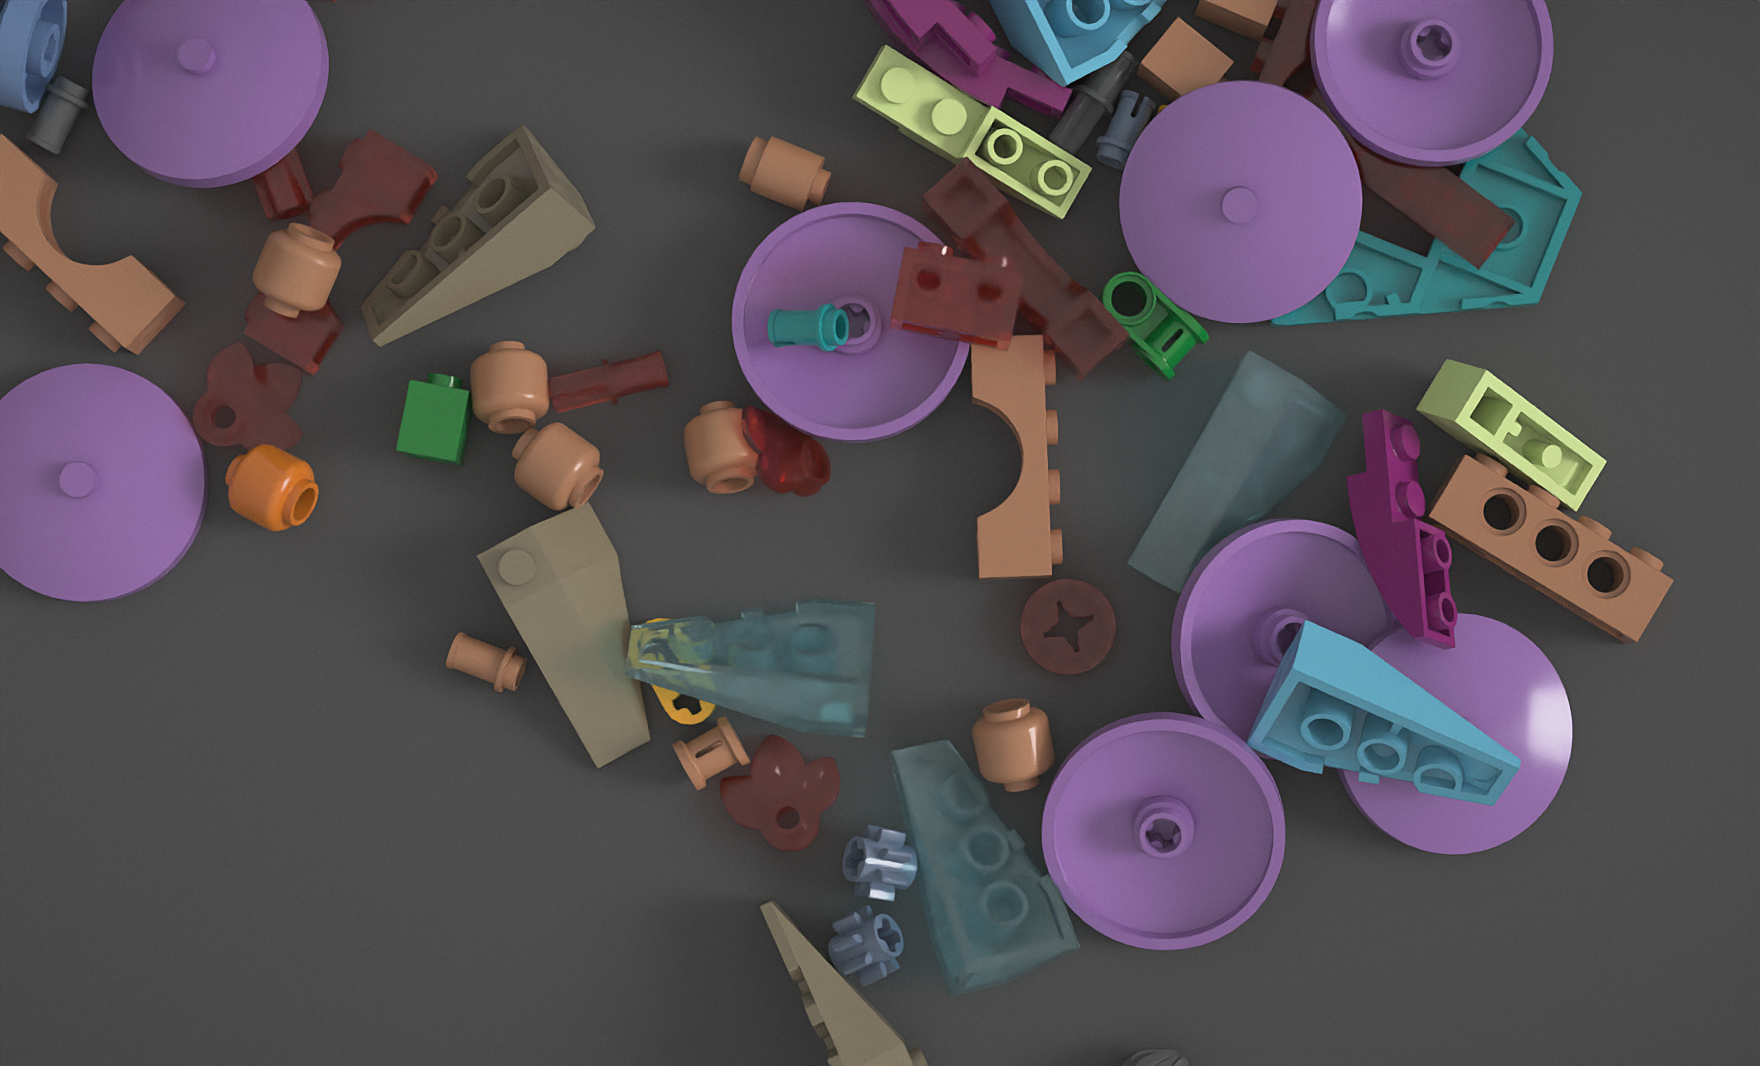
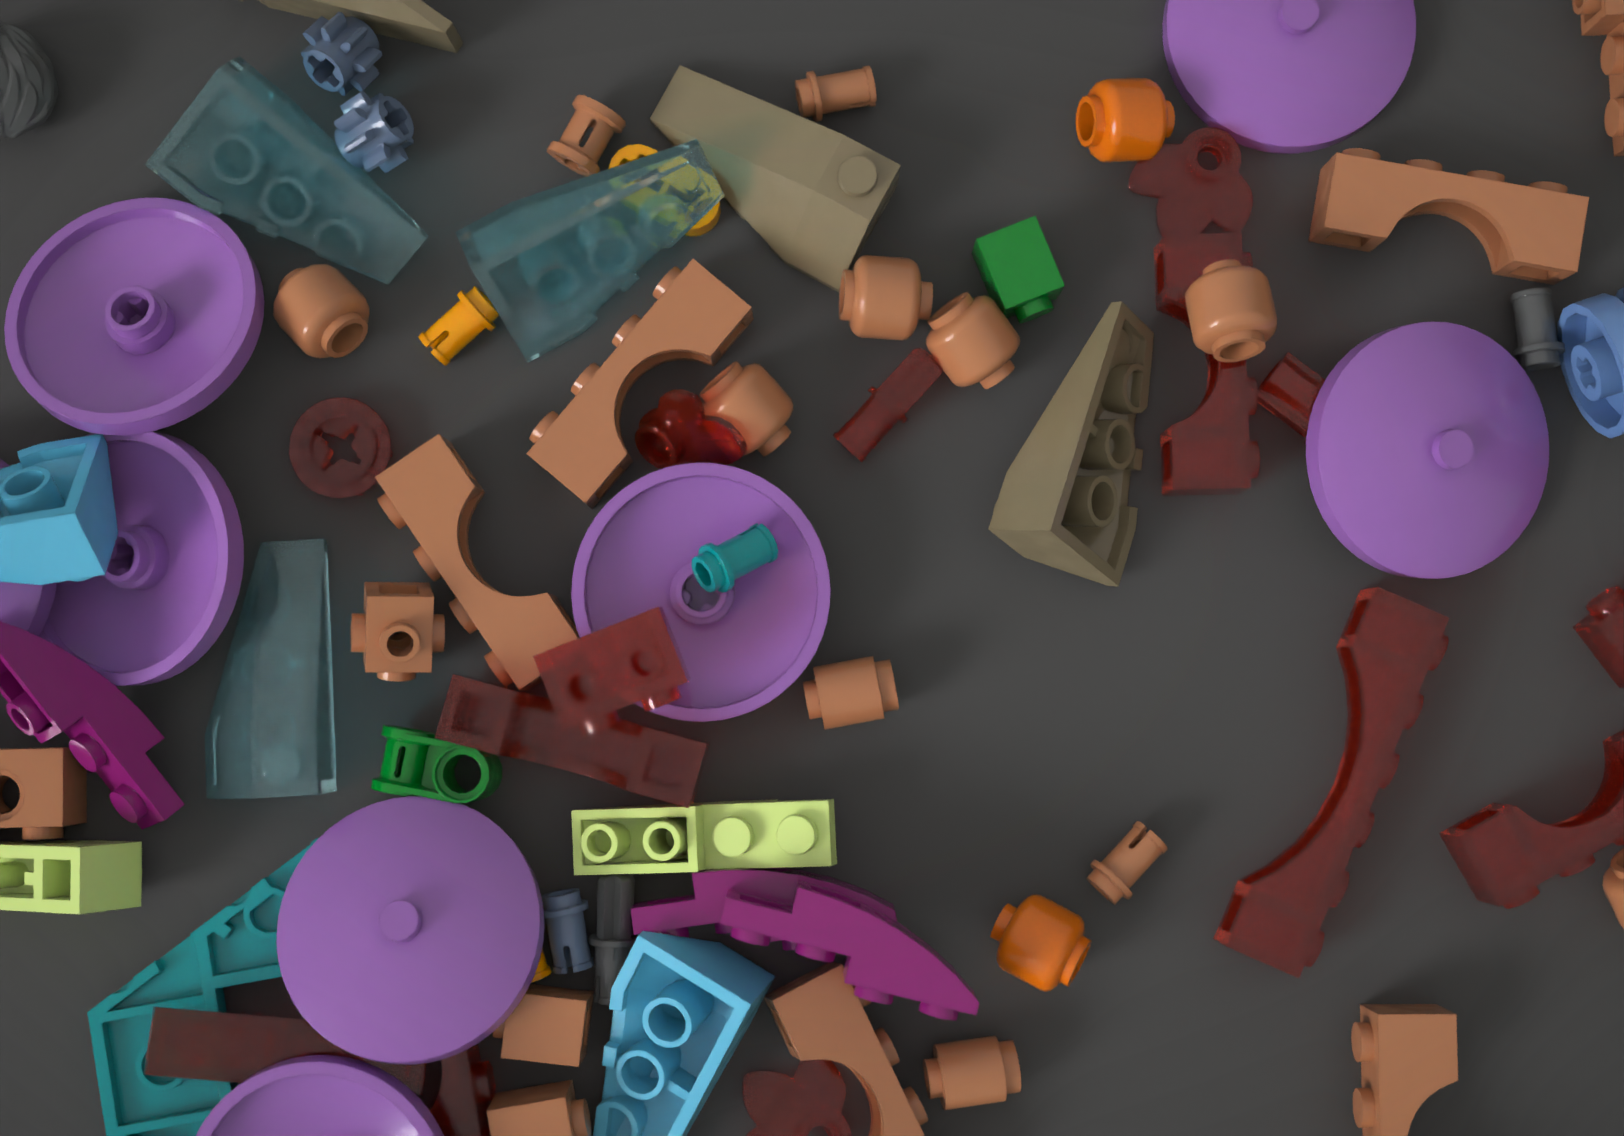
camera: 145 degrees right, 0 degrees up
(779, 785) = (509, 149): clear red plate -> none
(869, 502) = (690, 321): none -> nougat arch
(907, 666) = (460, 325): none -> light orange pin
(1109, 446) = (392, 609): none -> nougat brick

